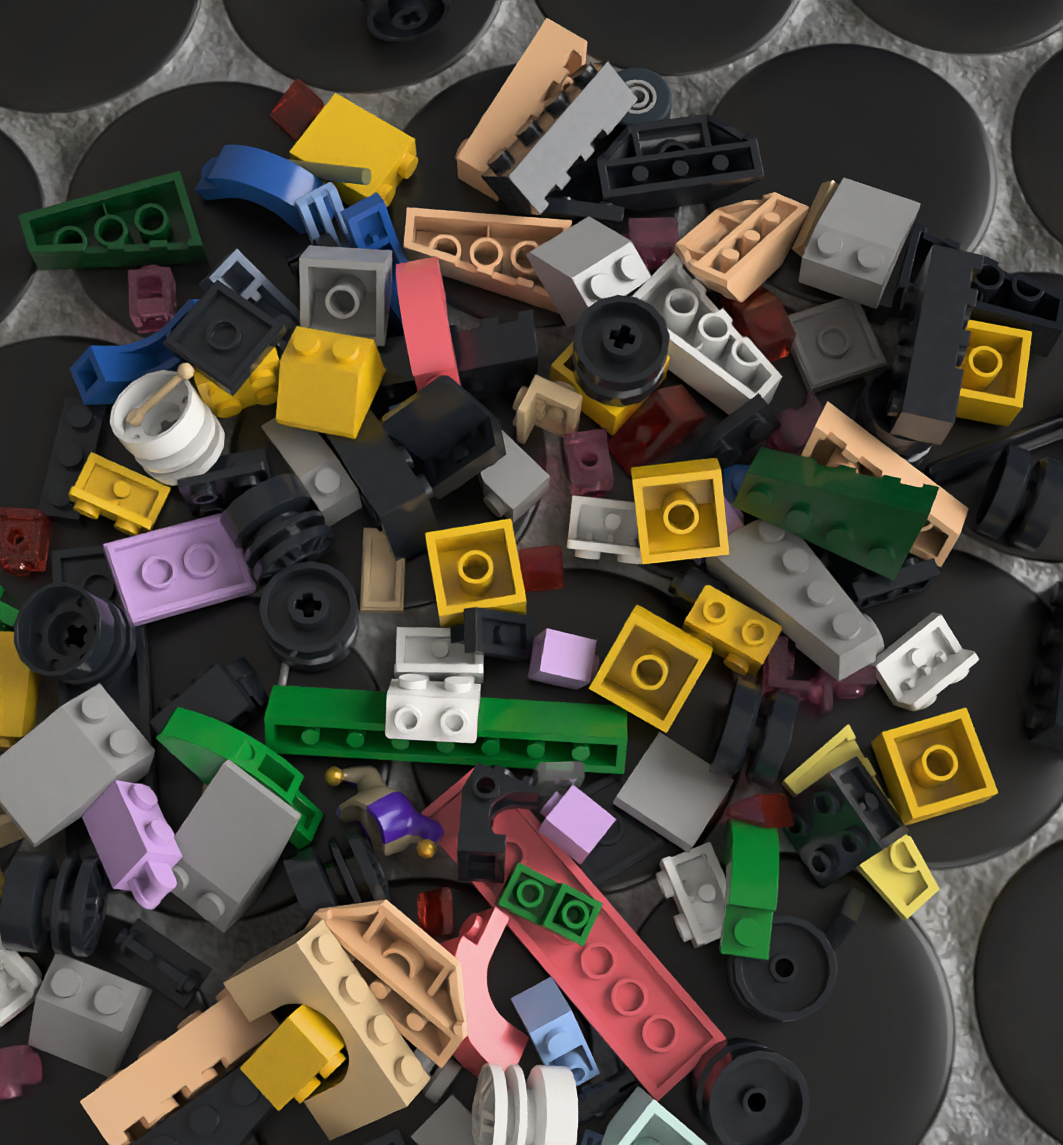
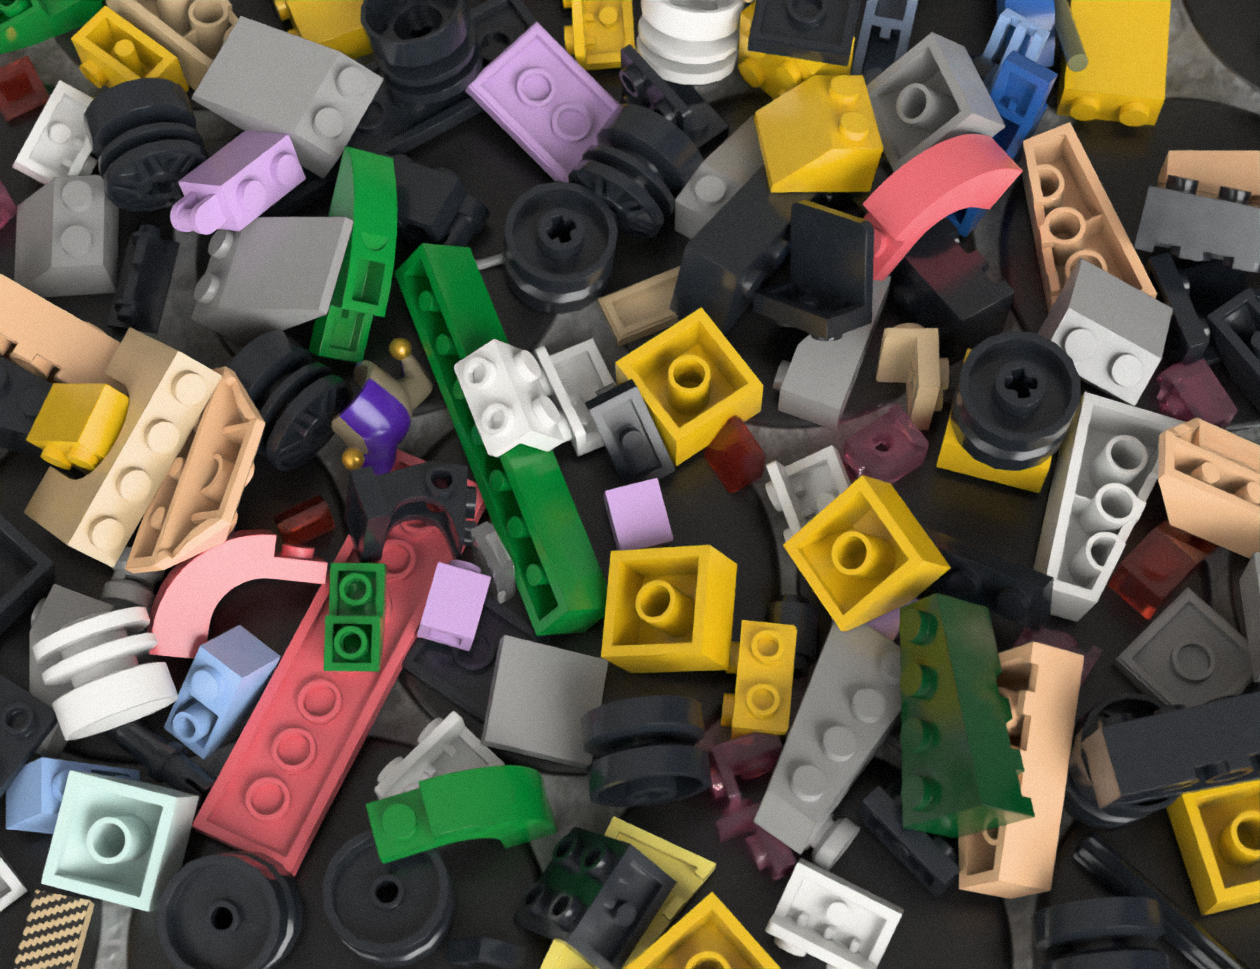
camera: 70 degrees right, 5 degrees down
(656, 427) = (969, 504): clear red slope -> none
(762, 810) = (562, 804): clear red slope -> none

